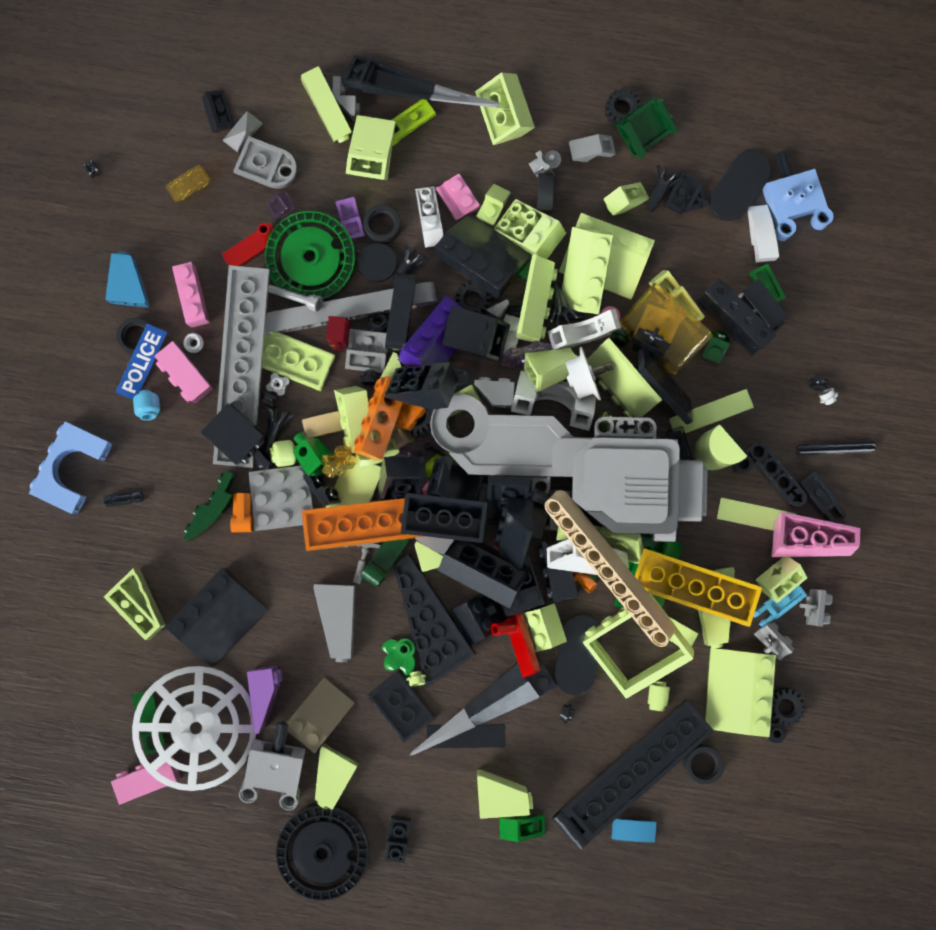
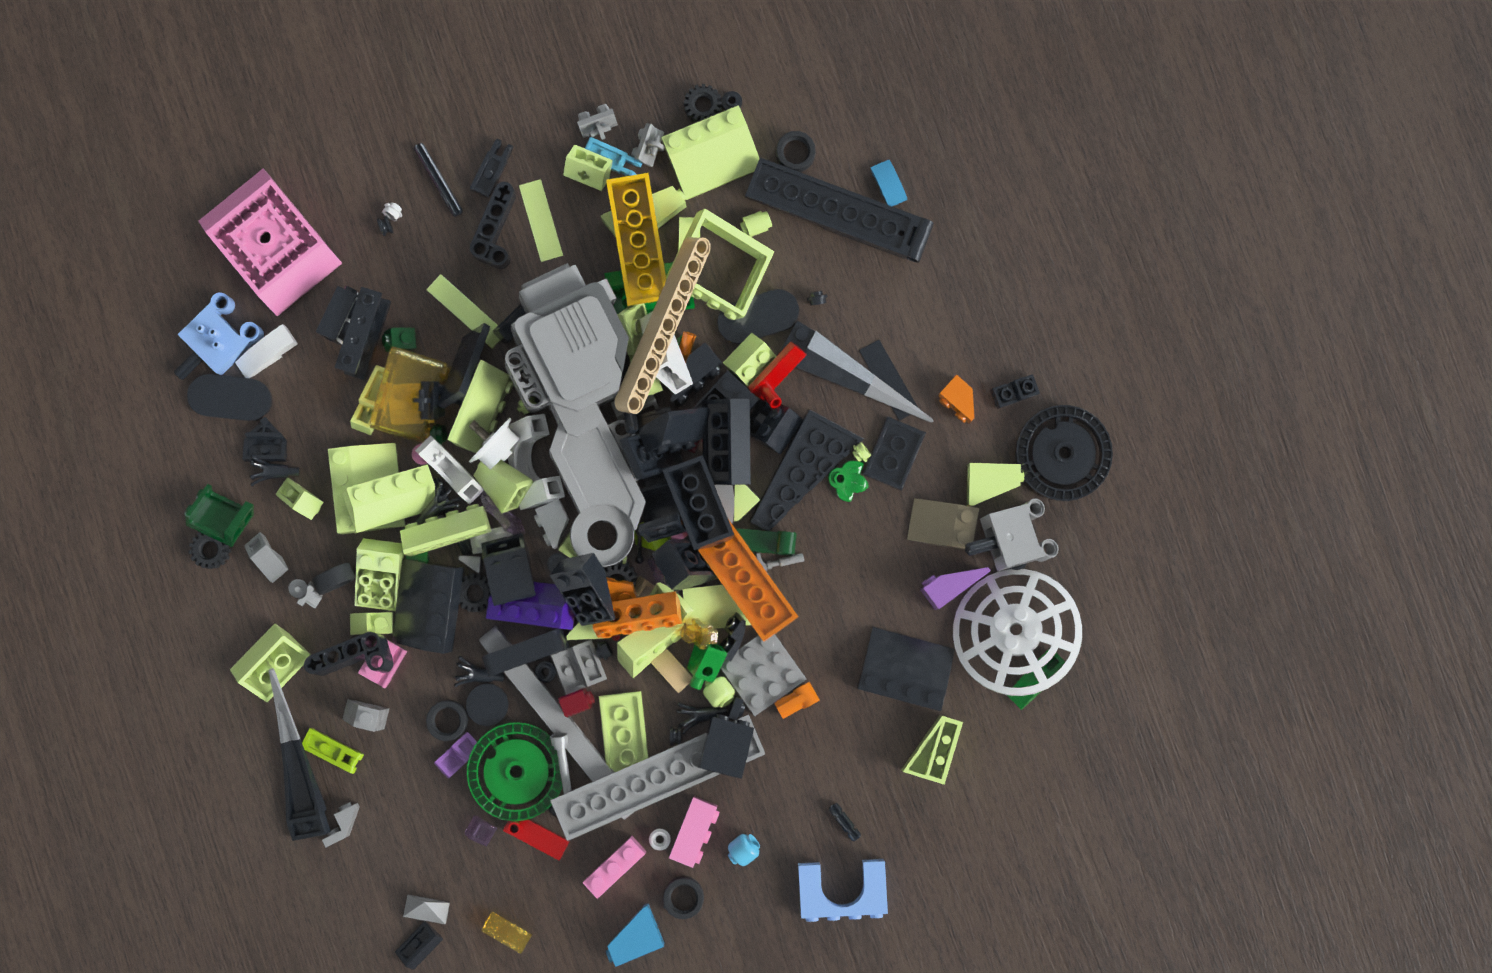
camera: 115 degrees left, 0 degrees up
(140, 782) = (1093, 655): bright pink brick -> none
(141, 361) = (705, 878): blue sticker -> none
(208, 515) = (816, 732): dark green slope -> none
(264, 164) = (447, 868): light grey plate -> none
(275, 378) = (660, 730): white plate -> none
(326, 105) = (357, 839): yellowish green slope -> none
(337, 611) = (844, 556): light grey slope -> none
(371, 148) = (378, 770): yellowish green slope -> none
(417, 788) = (960, 398): none -> orange slope
(420, 160) = (365, 715): none -> light grey slope
(429, 215) = (415, 678): white slope -> none
(476, 169) = (347, 658): none -> black beam
(501, 797) = (924, 317): yellowish green slope -> none
(522, 827) = (941, 285): green slope -> none
(717, 449) = (499, 286): yellowish green brick -> none
(768, 279) = (310, 323): green plate -> none
(812, 537) = (534, 159): bright pink wedge -> none
(828, 286) = (291, 259): none -> bright pink slope

